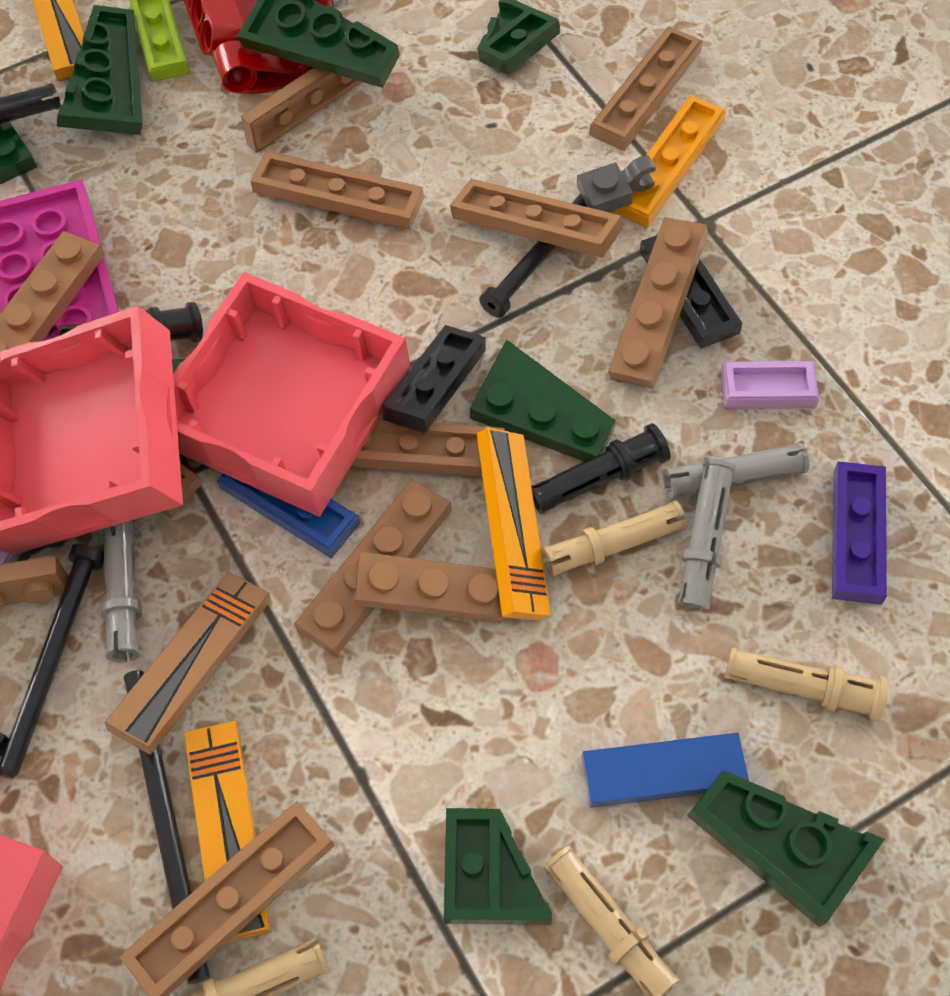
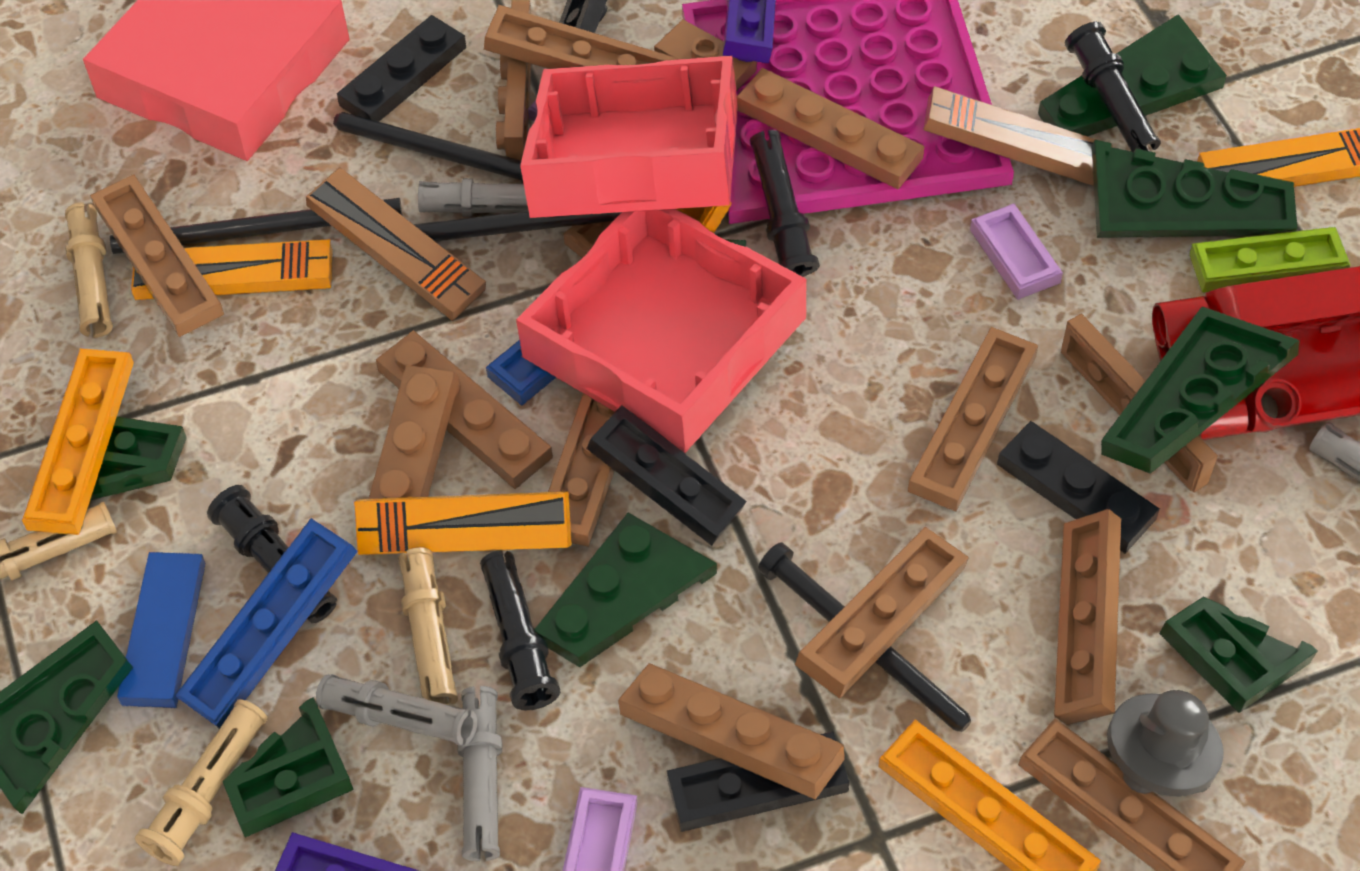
camera: 100 degrees right, 5 degrees down
(43, 179) = (1009, 134): none -> tile
(159, 183) = (1016, 251): none -> lavender tile
(159, 580) = (505, 224): none -> black bar
(387, 128) = (1075, 482): none -> black plate
(485, 904) = (78, 442): none -> light orange tile
(505, 108) = (1088, 618): none -> medium nougat plate
(555, 702) = (256, 536): none -> black pin
(598, 60) = (1165, 744): none -> dark grey plate
(611, 188) = (927, 710): dark grey plate -> none
(648, 663) = (266, 622): none -> blue tile
(778, 614) = (288, 774): none -> dark green wing

